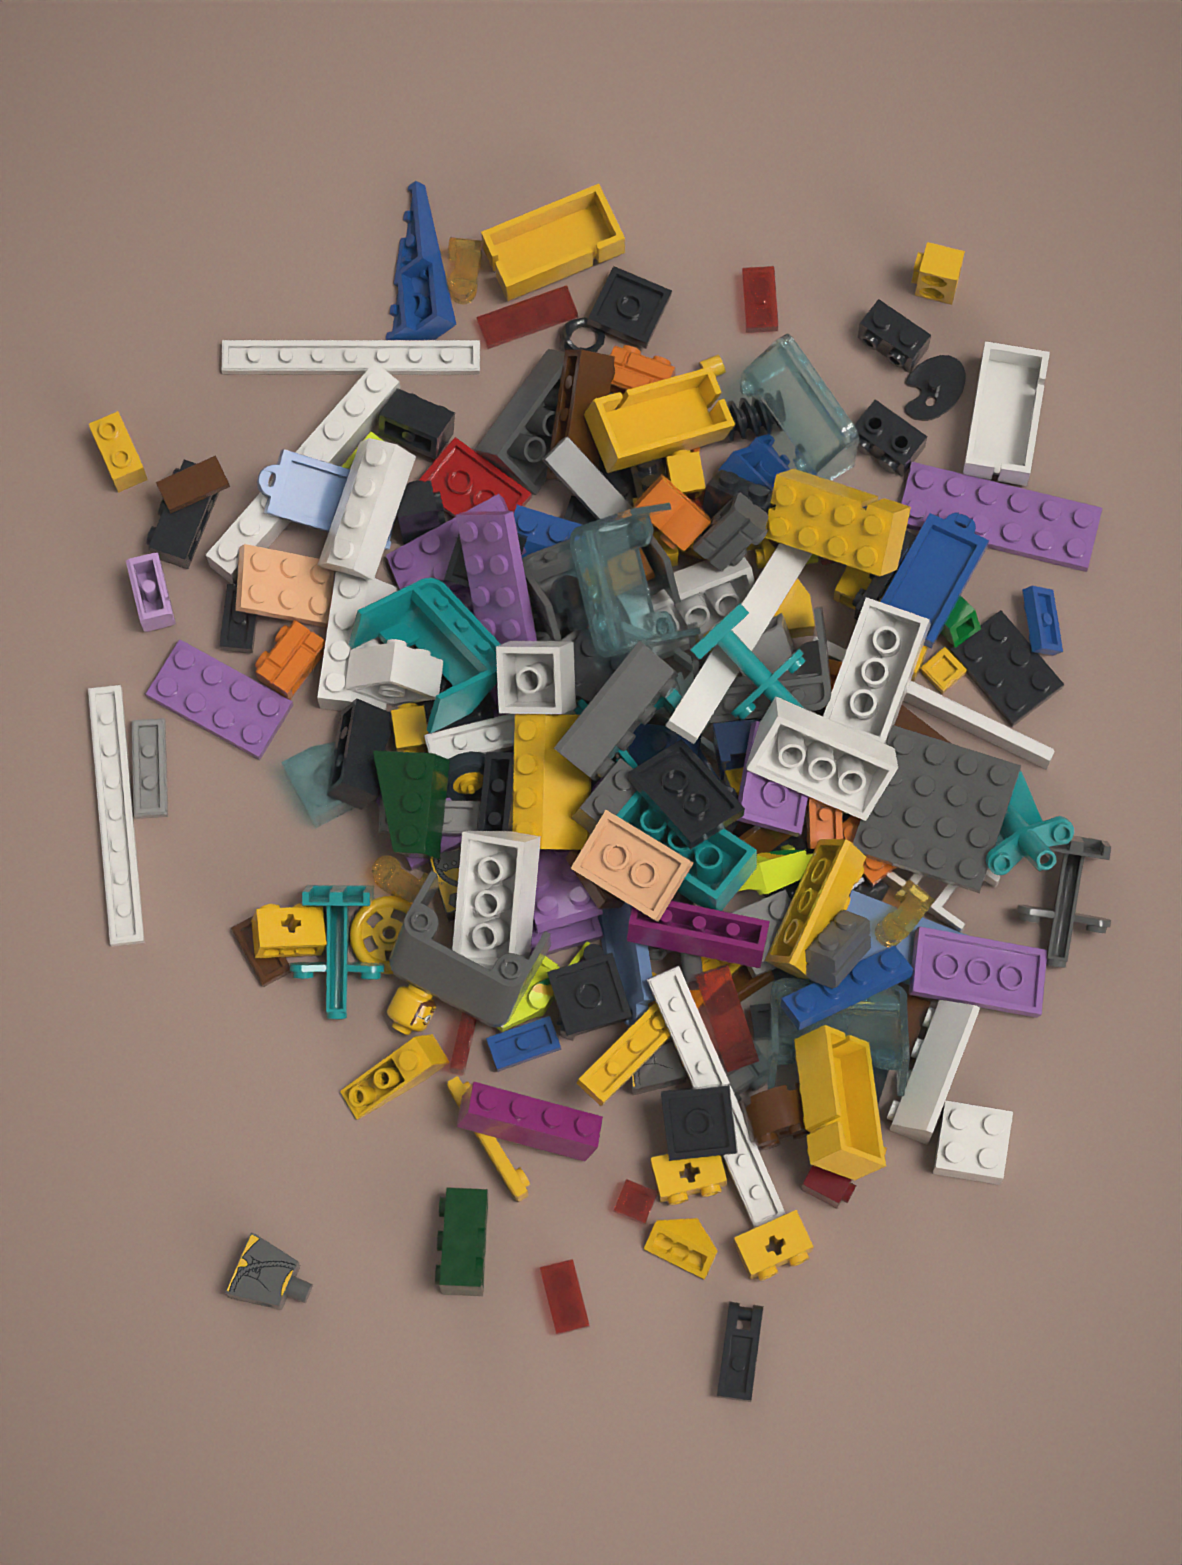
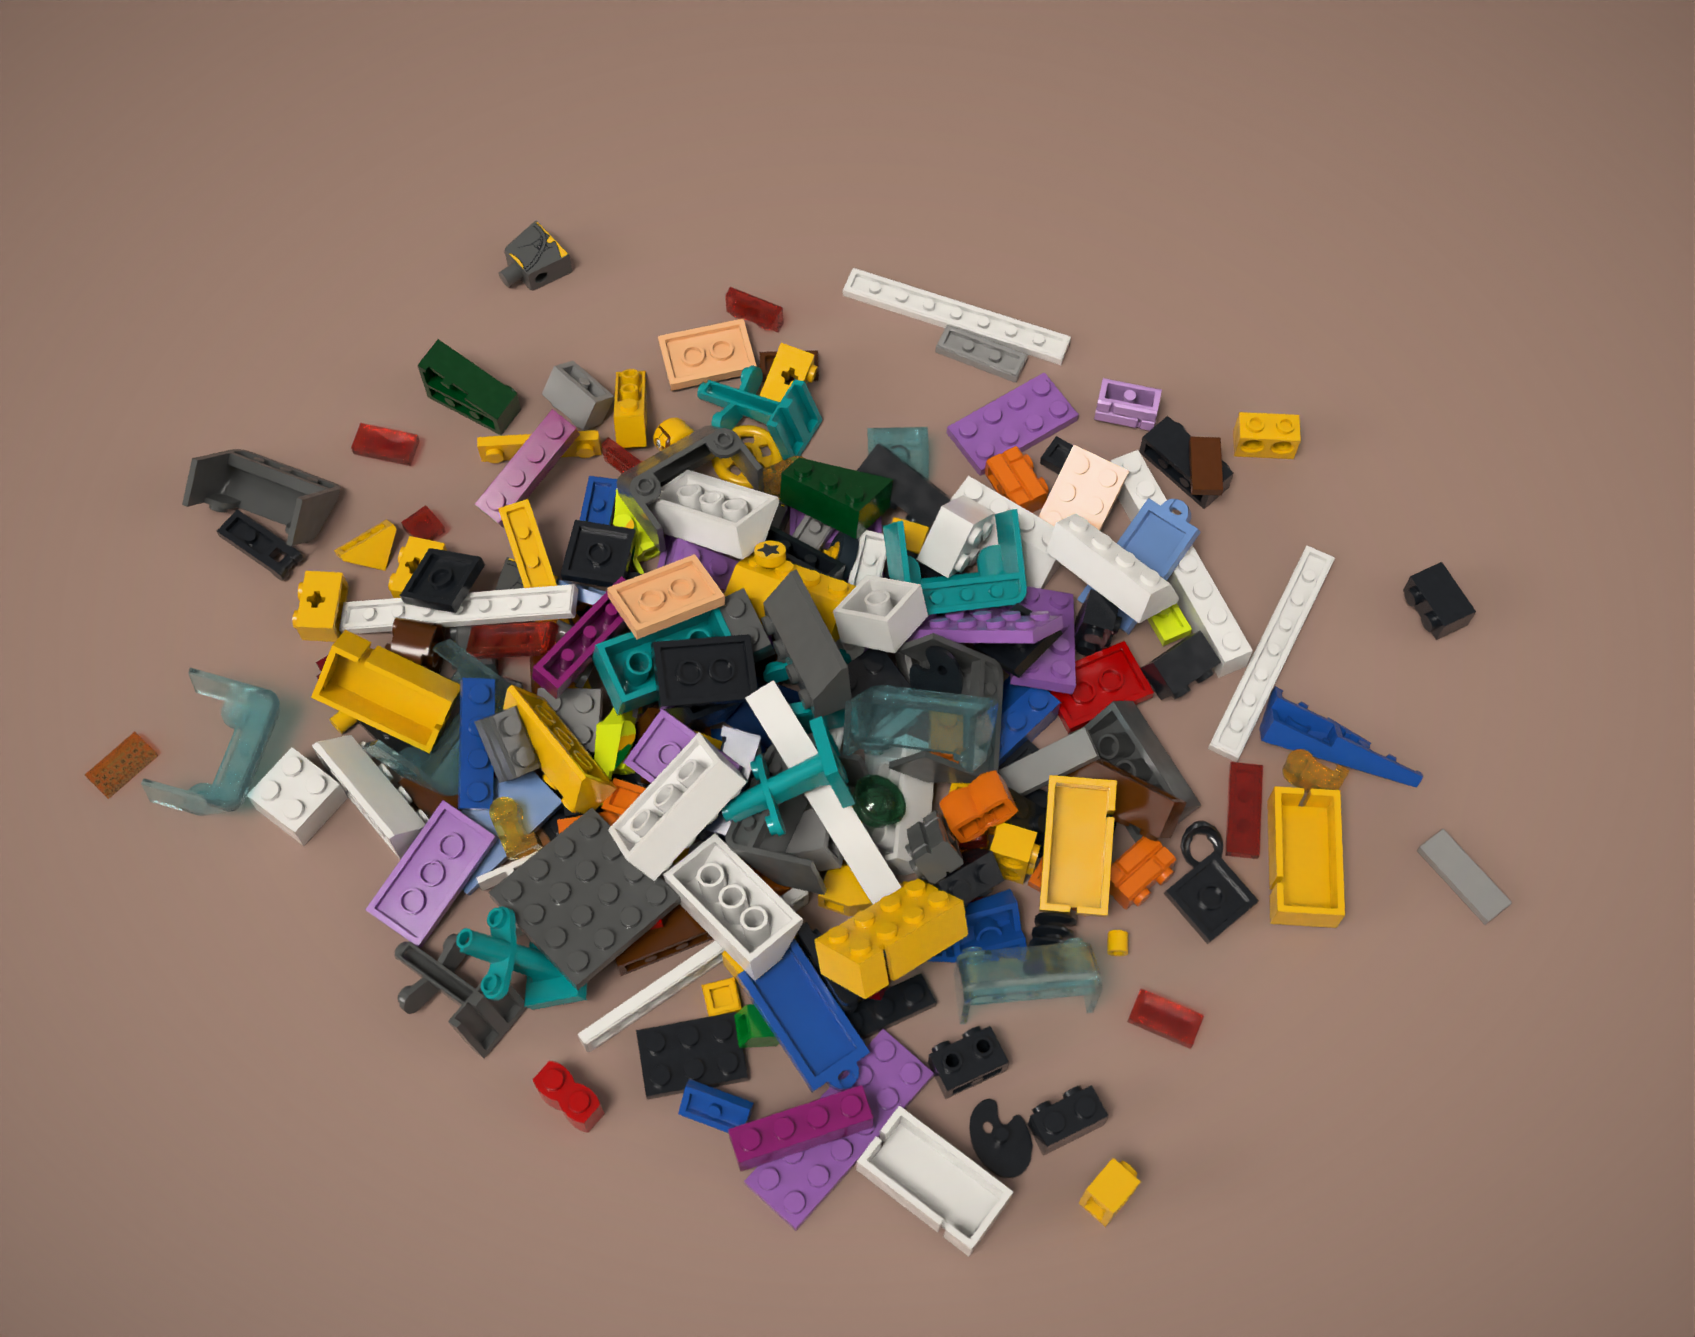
camera: 115 degrees right, 10 degrees down
(217, 999) = (754, 309): none -> clear red plate
(228, 229) = (1438, 601): none -> black brick
(292, 1034) = (706, 354): none -> light nougat plate
(414, 1128) = (577, 395): none -> light grey brick
(493, 114) = (1464, 876): none -> light grey tile
(520, 816) = (770, 554): none -> yellow tile
(674, 1370) = (263, 488): none -> dark grey windscreen
(711, 600) = (878, 801): none -> clear green hat
(970, 1210) = (253, 716): none -> clear light blue windscreen
(1026, 533) = (801, 1128): none -> magenta brick
(1029, 1336) = (121, 765): none -> clear orange tile
(1102, 745) = (574, 1099): none -> red brick

